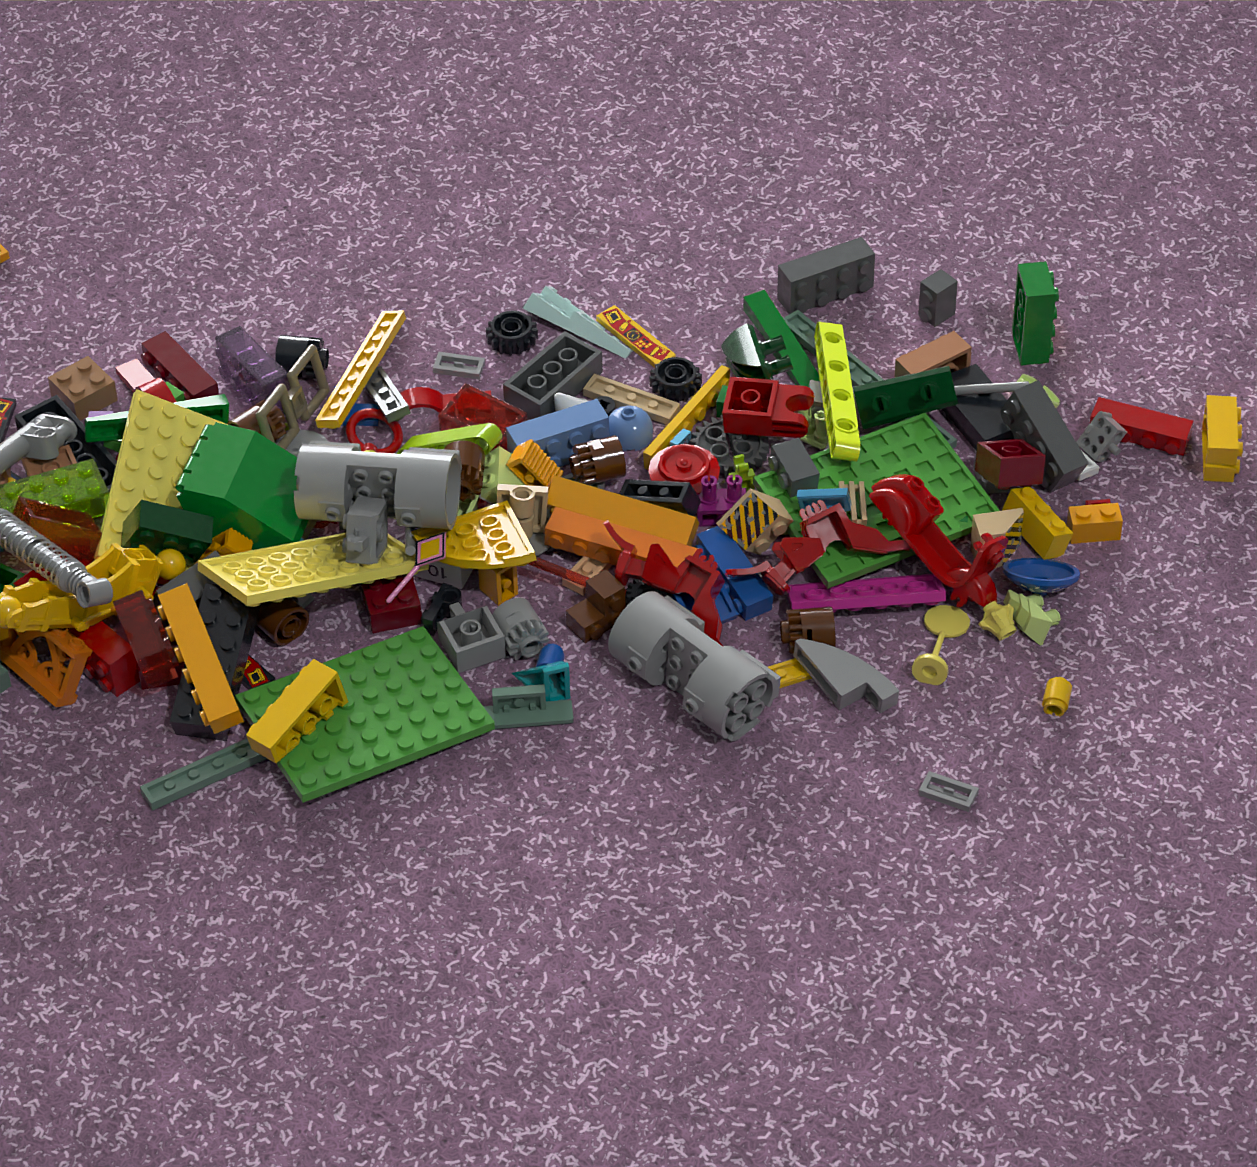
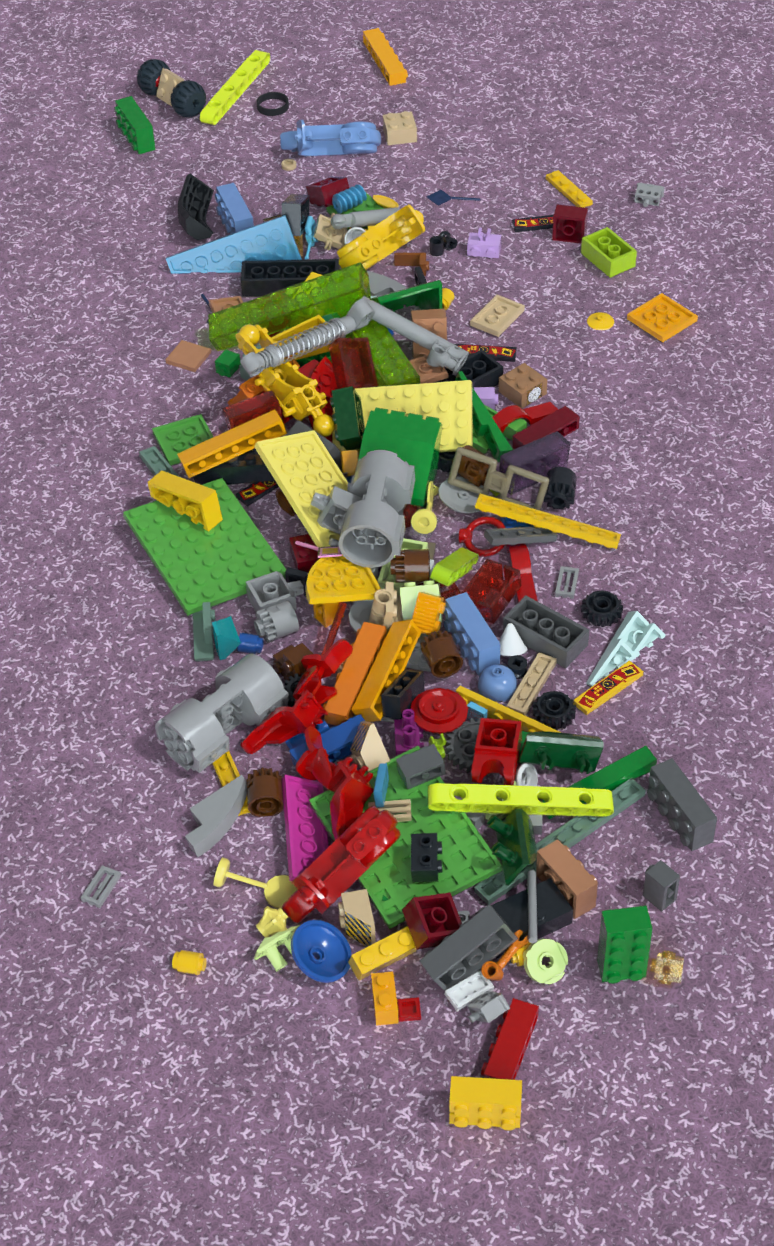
camera: 90 degrees right, 0 degrees up
(127, 754) = (181, 436): none -> bright green plate
(930, 464) = (424, 857): none -> black brick

